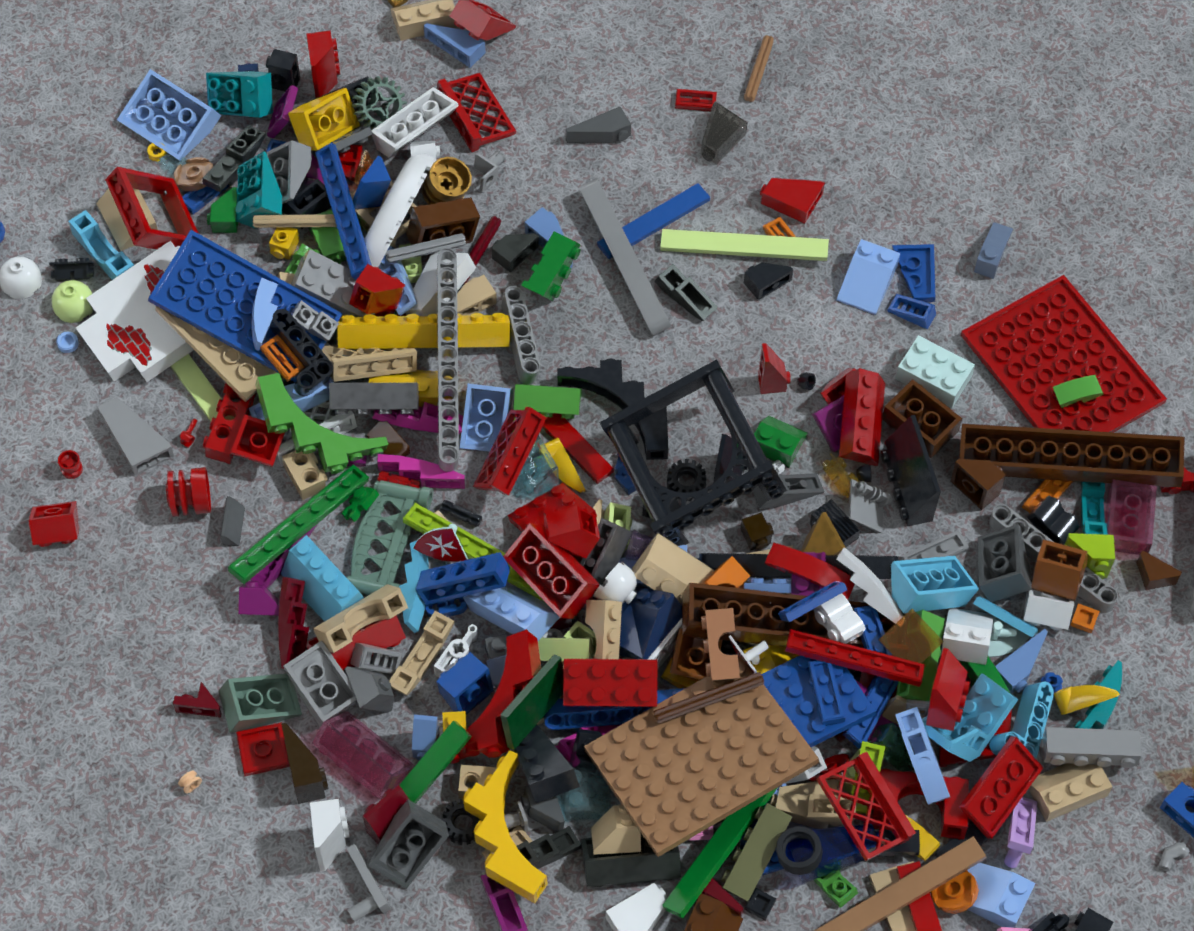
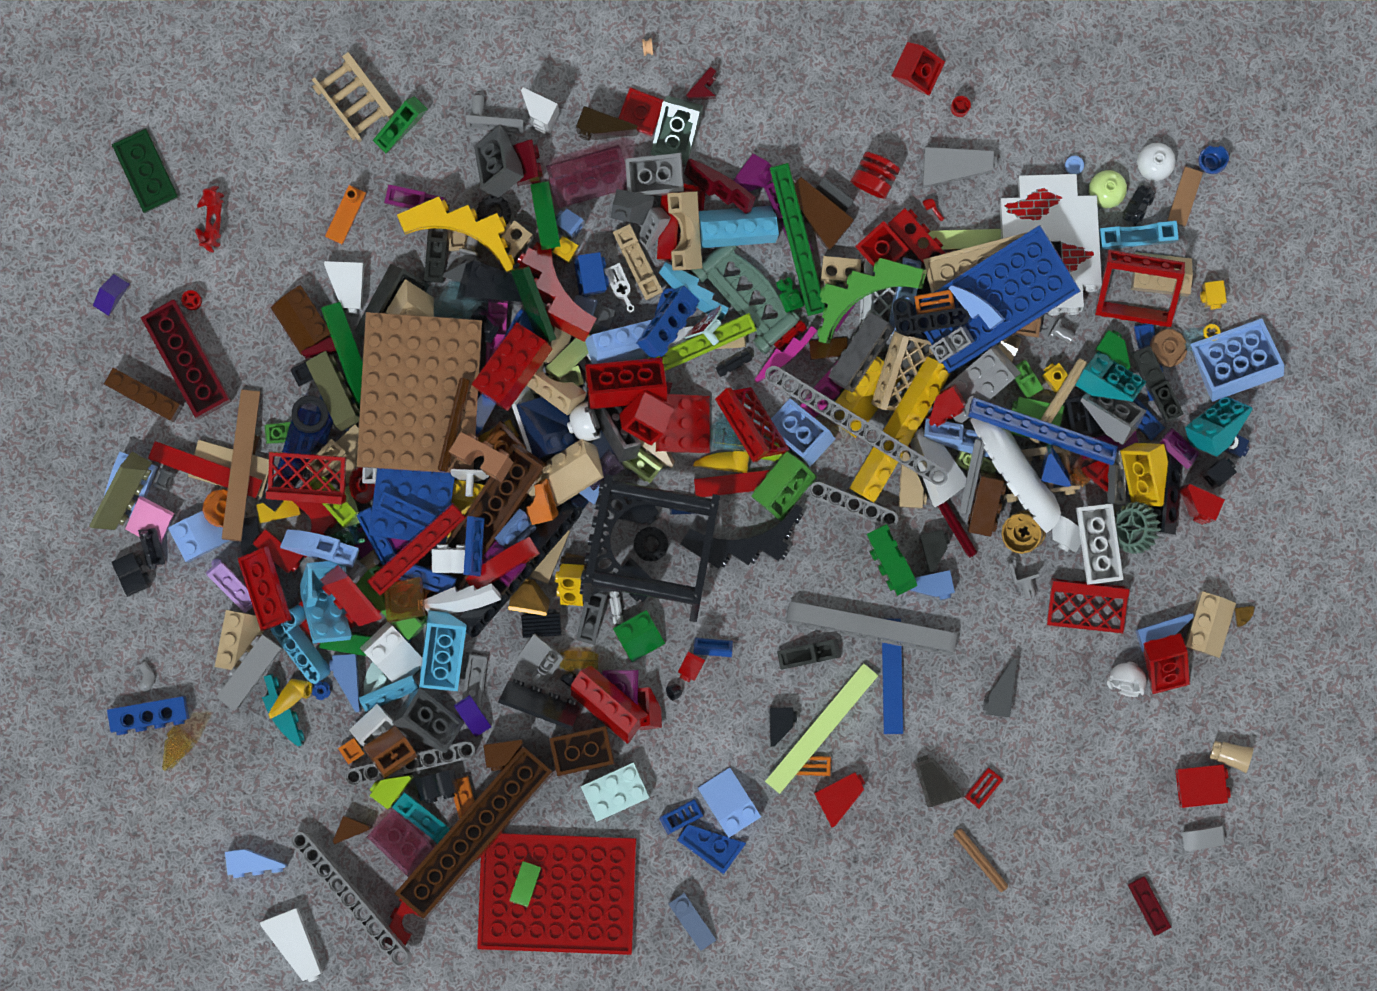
camera: 125 degrees right, 25 degrees up
(39, 239) = (1185, 196): none -> medium nougat tile
(118, 158) = (1213, 294): none -> yellow brick
(261, 513) = (822, 214): none -> reddish brown slope
(516, 43) = (1128, 678): none -> white cylinder
(741, 371) = (713, 647): none -> blue tile
(778, 516) = (569, 584): none -> yellow brick
(966, 531) = (472, 716): none -> dark purple slope

